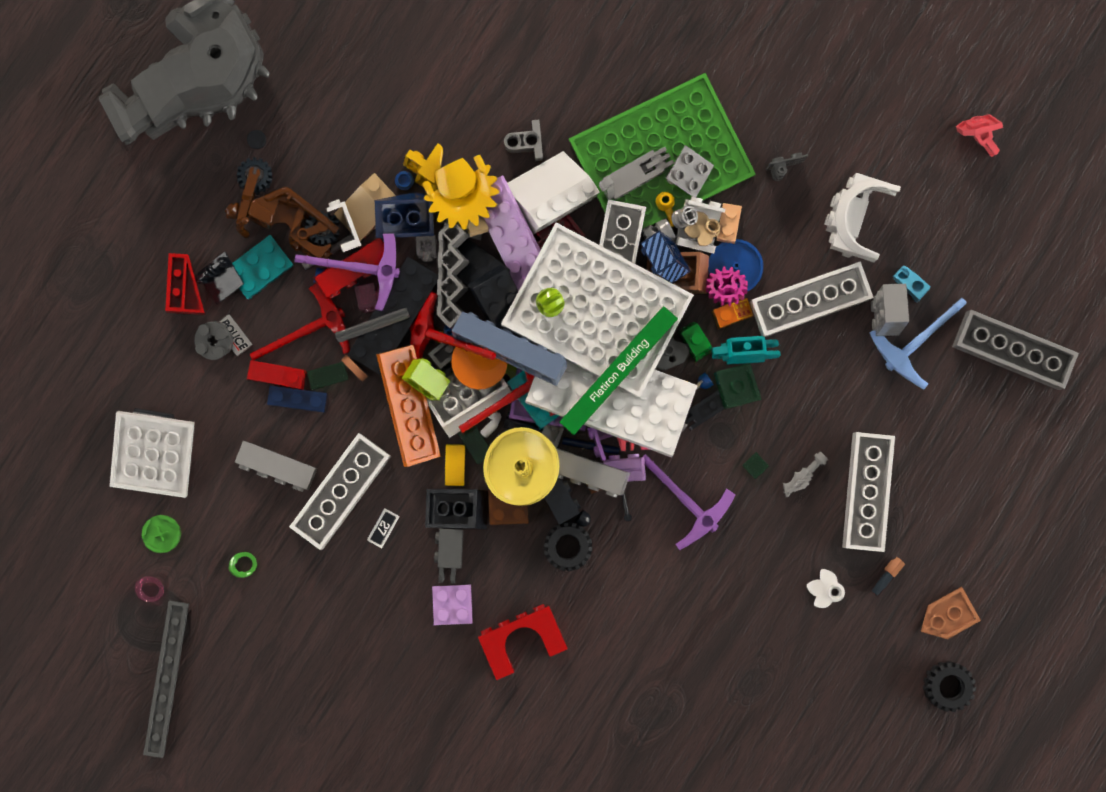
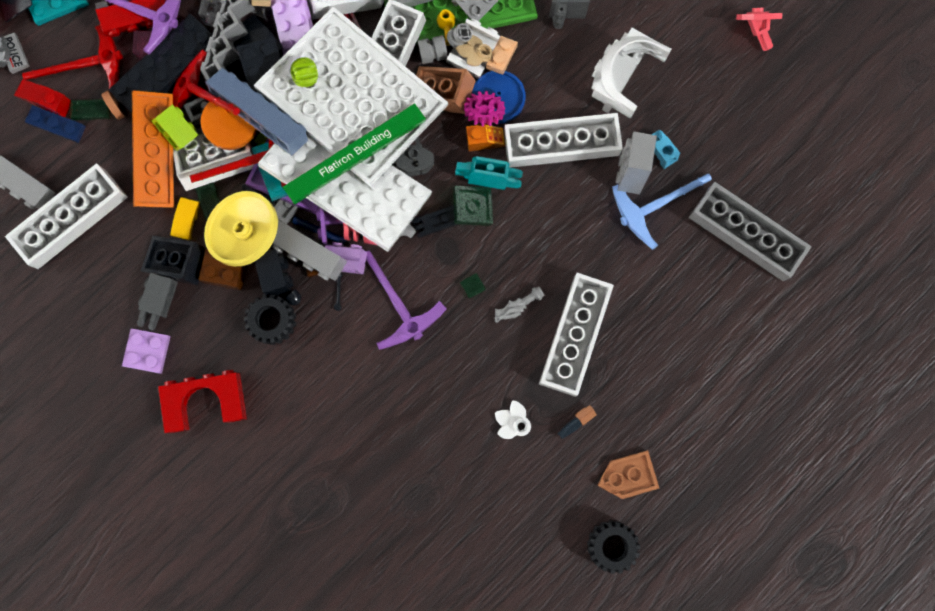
camera: 15 degrees right, 5 degrees down
(372, 325) = (137, 65): dark grey axle -> none
(383, 528) = (101, 263): sticker -> none
(492, 425) = (231, 188): white arm -> none
(665, 257) = (430, 64): dark blue container -> none
(695, 340) = (443, 153): green torso -> none
(704, 381) = (441, 195): blue hinge -> none

